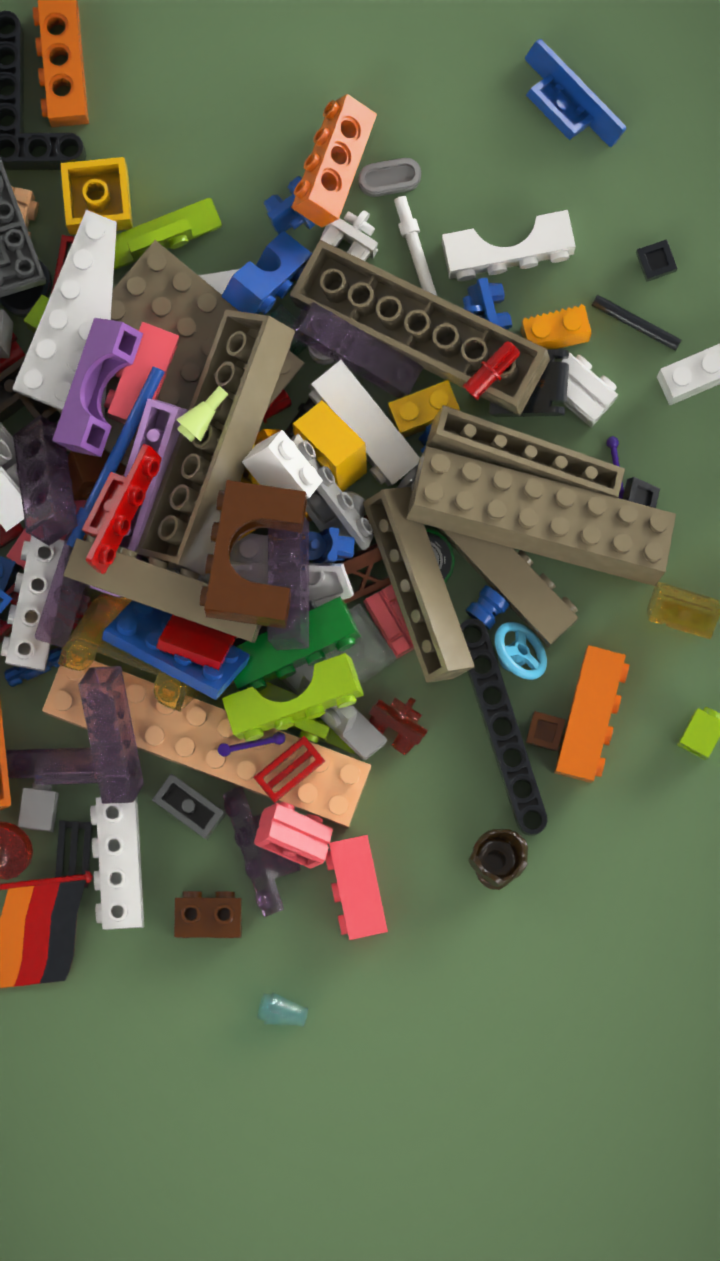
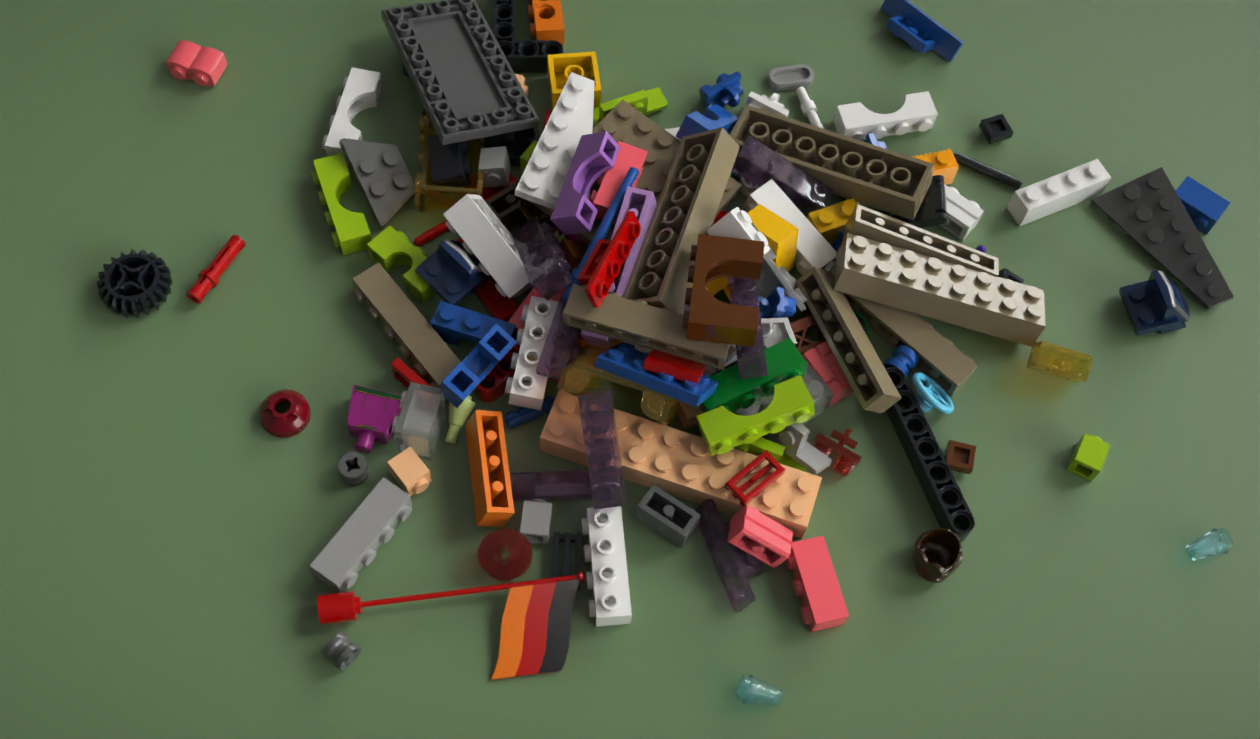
camera: 10 degrees left, 20 degrees down
(196, 421) = (667, 202): yellowish green cone -> none
(208, 916) = (688, 609): reddish brown brick -> none
(225, 750) = (698, 463): dark purple hinge -> none
(333, 160) = (752, 57): orange brick -> none
(491, 370) = (893, 176): red axle -> none
(590, 714) = (995, 443): orange brick -> none

